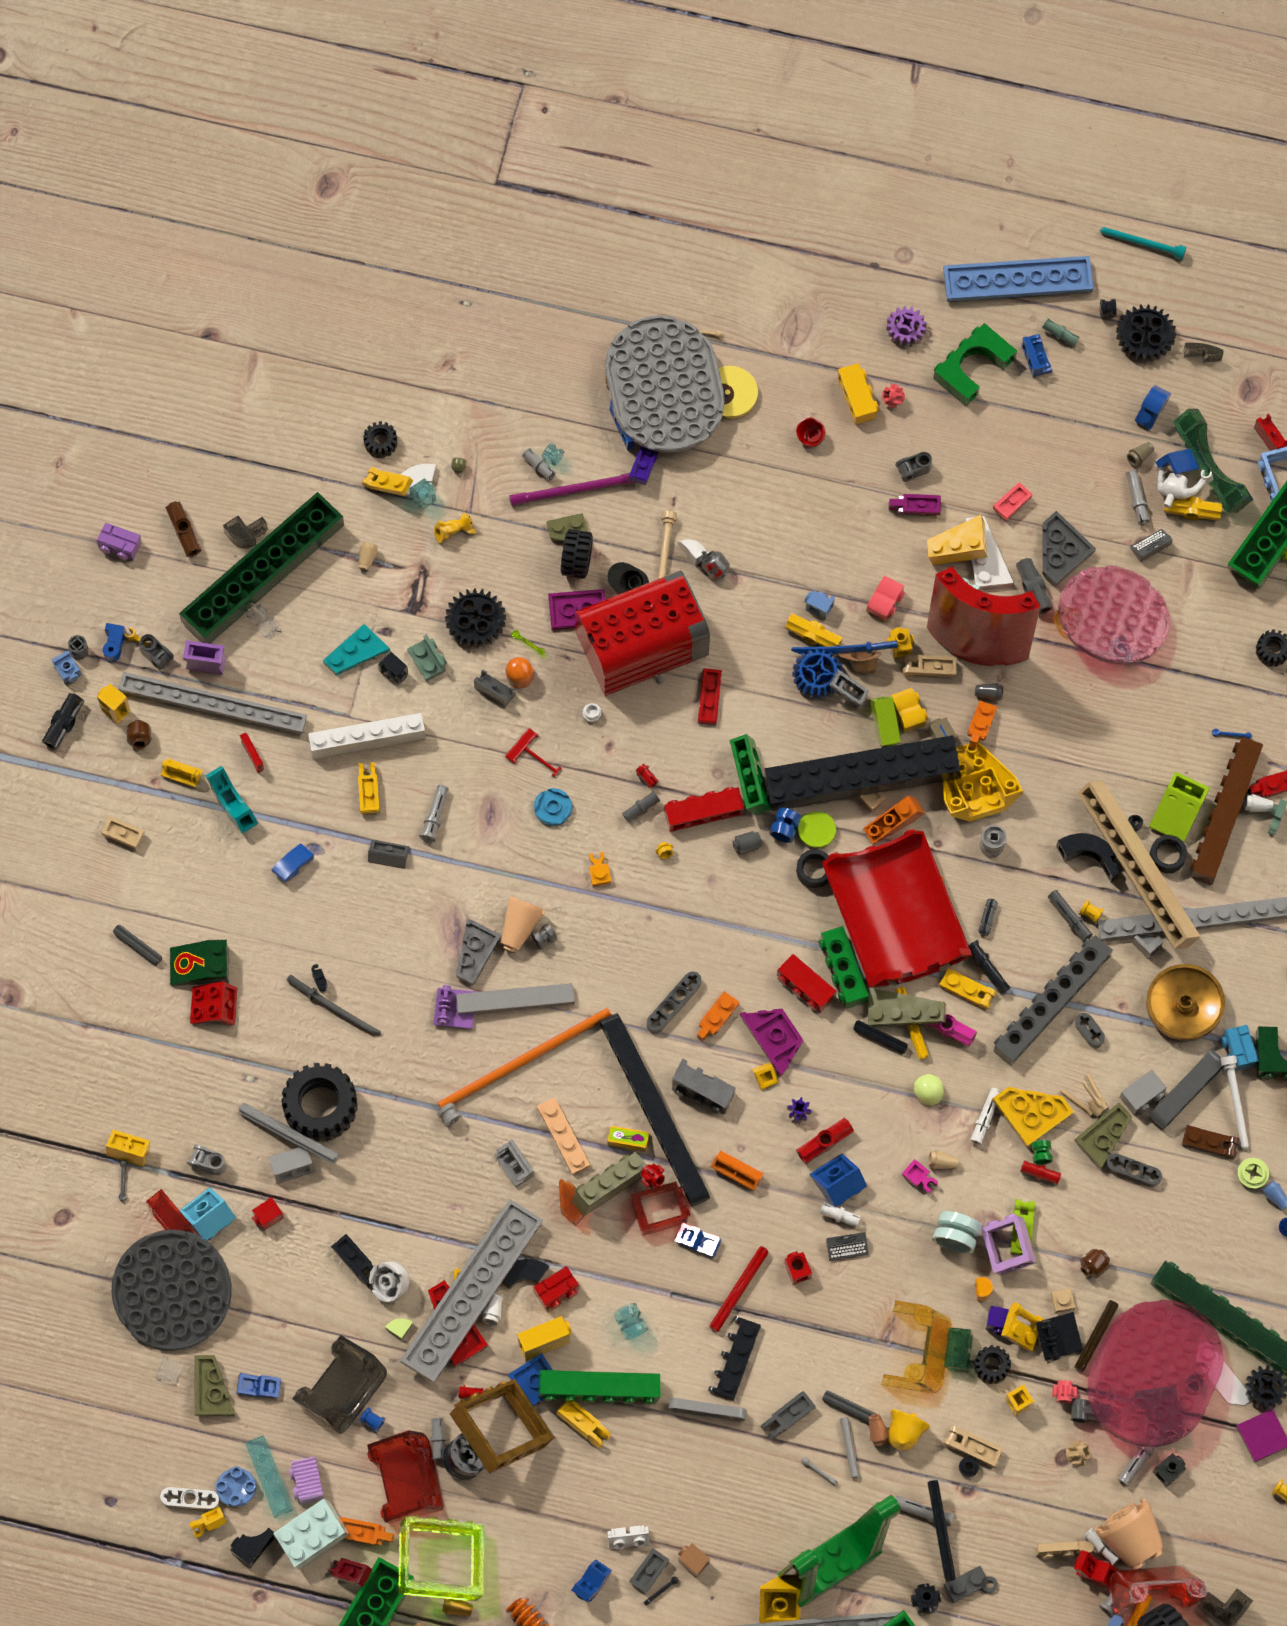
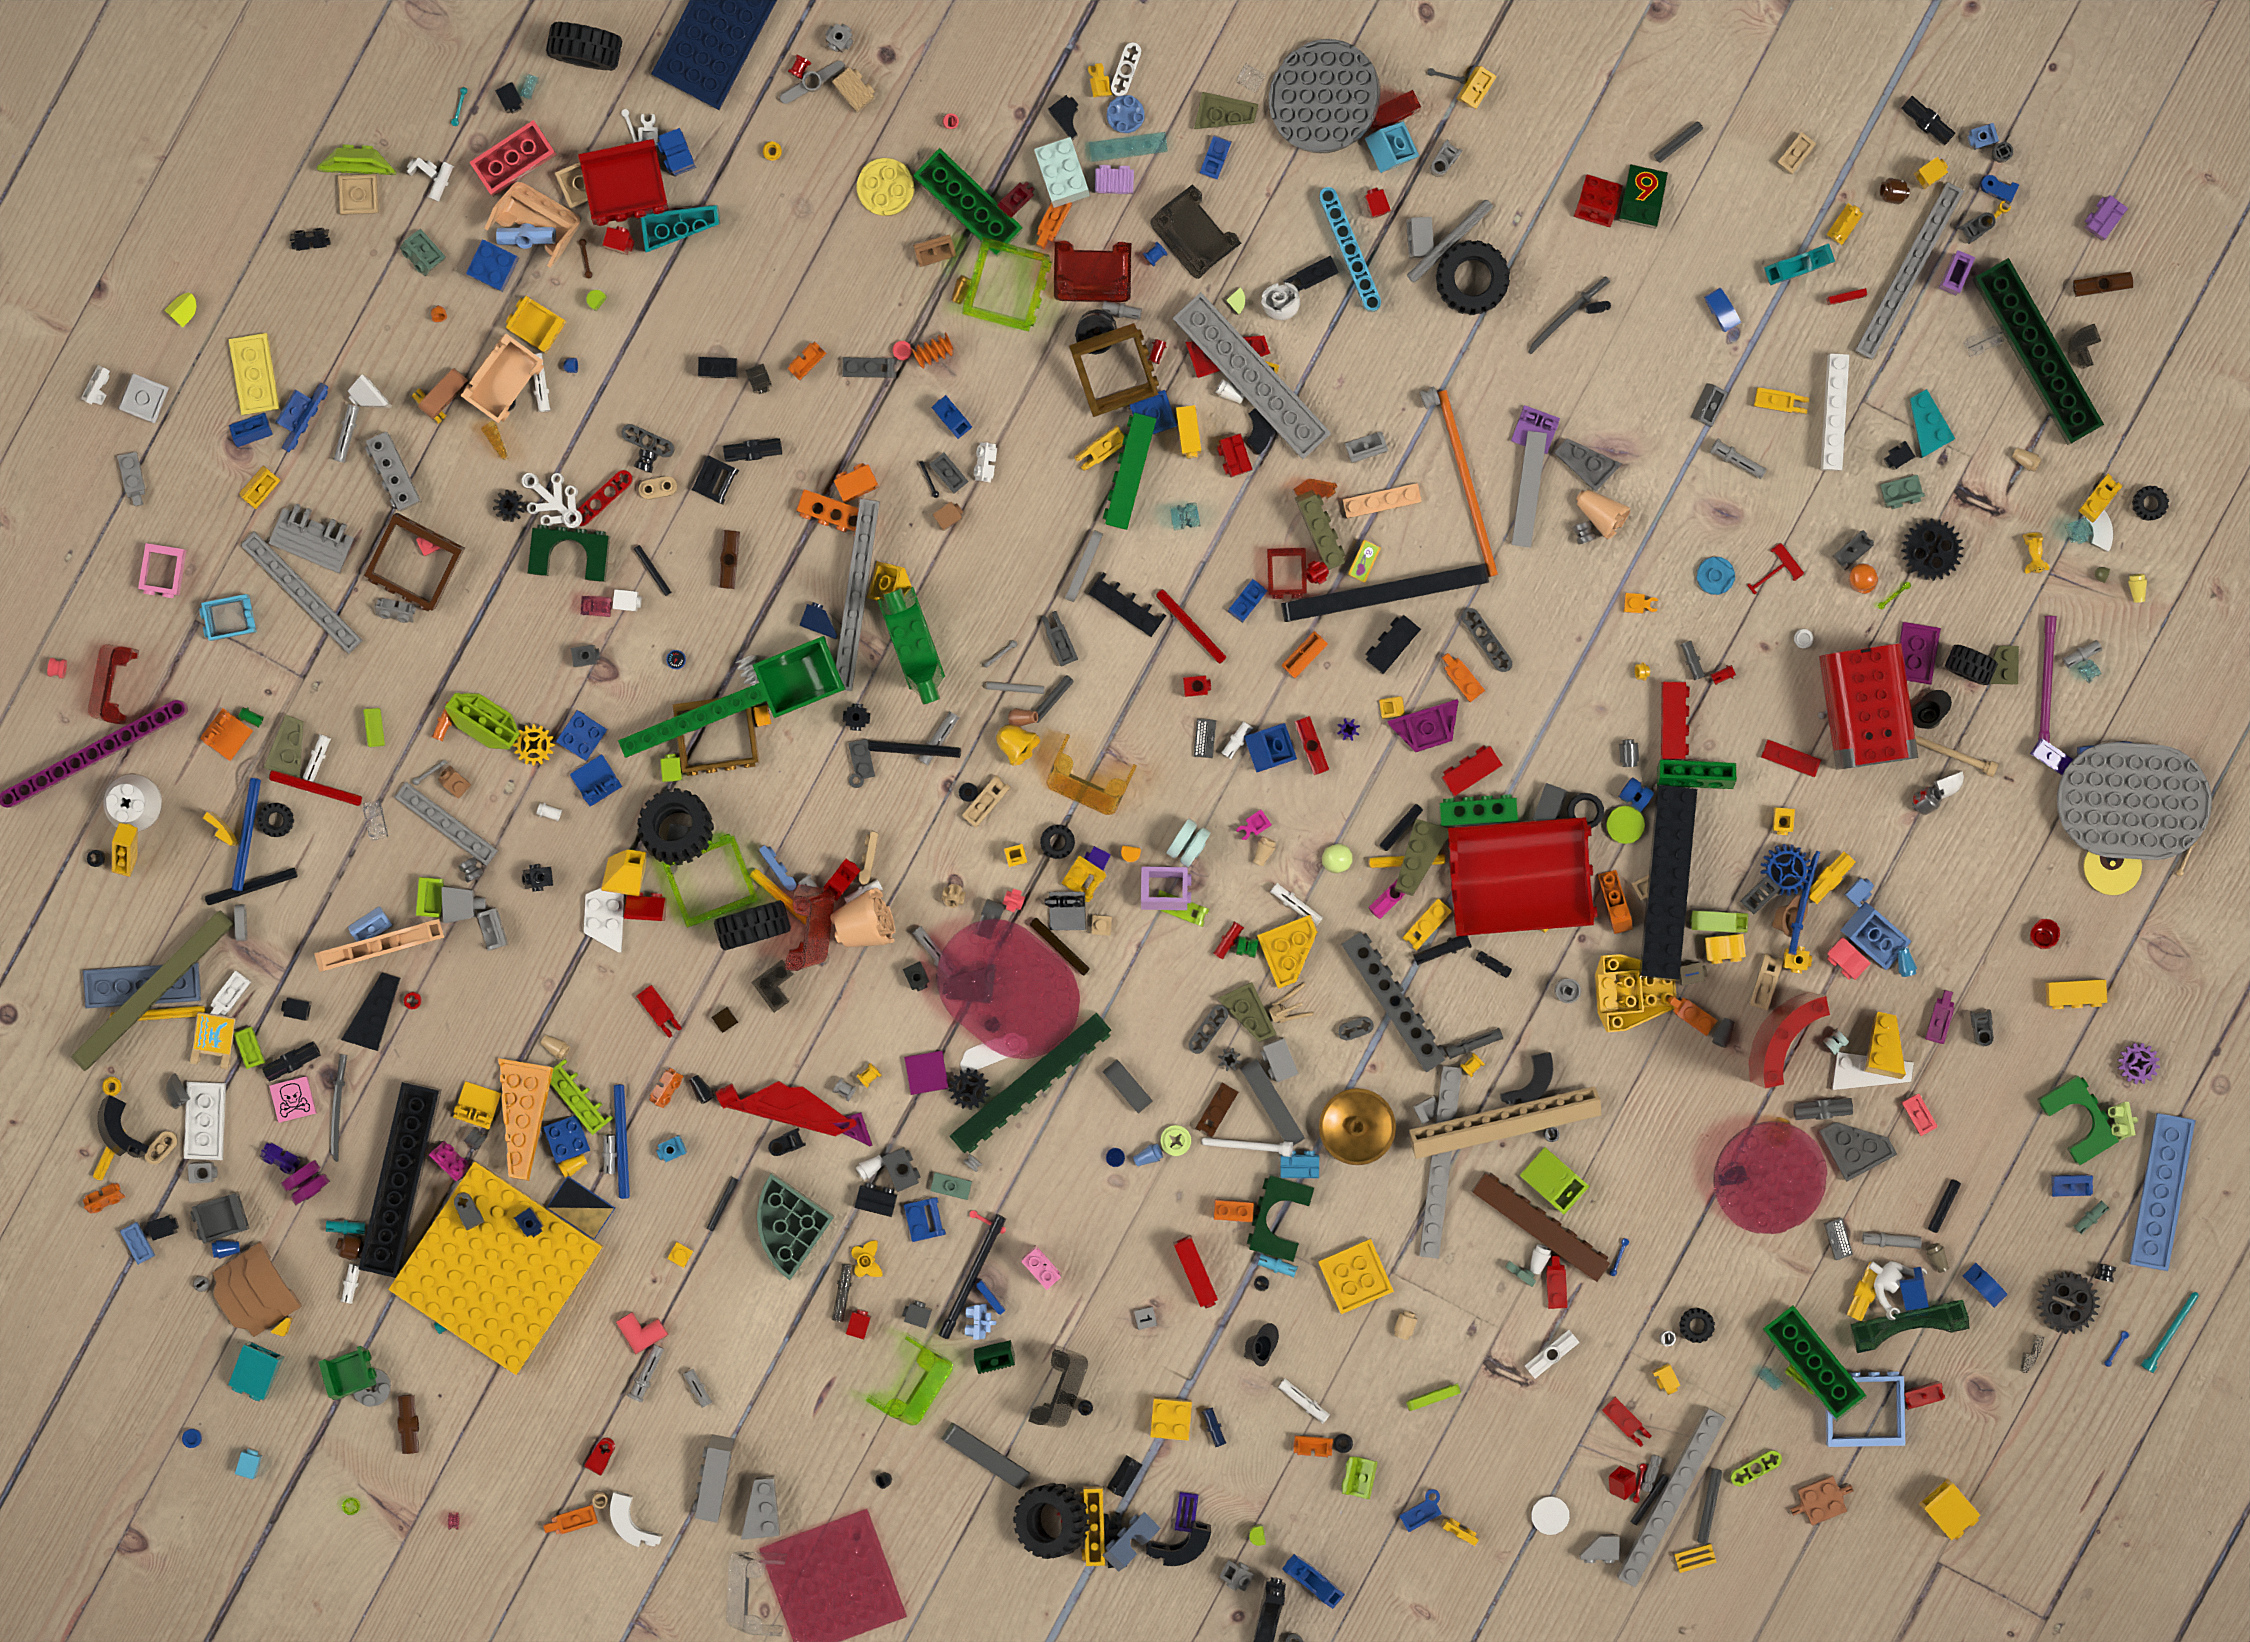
camera: 105 degrees right, 20 degrees up
(324, 1220) = (1350, 239): none -> medium azure beam
(462, 431) = (2138, 587): none -> light yellow cone
(767, 682) = (1788, 815): none -> yellow brick
(817, 901) = (1550, 803): none -> dark grey hinge
(856, 580) = (1875, 935): none -> medium blue slope
(874, 546) = (1906, 964): none -> dark azure cone
(893, 395) = (2064, 1028): coral gear -> none
(958, 1349) = (1079, 814): clear green hinge -> none
(963, 325) = (2123, 1121): none -> yellowish green hips
(1090, 460) = (1944, 1206): none -> black axle
(1094, 1263) = (1127, 964): reddish brown head -> none
(1153, 1143) = (1232, 1064): none -> dark grey gear
(1159, 281) = (2124, 1335): none -> blue hinge
(1171, 840) = (1514, 1142): black tyre -> none
(1214, 1232) = (1127, 1086): none -> dark grey beam

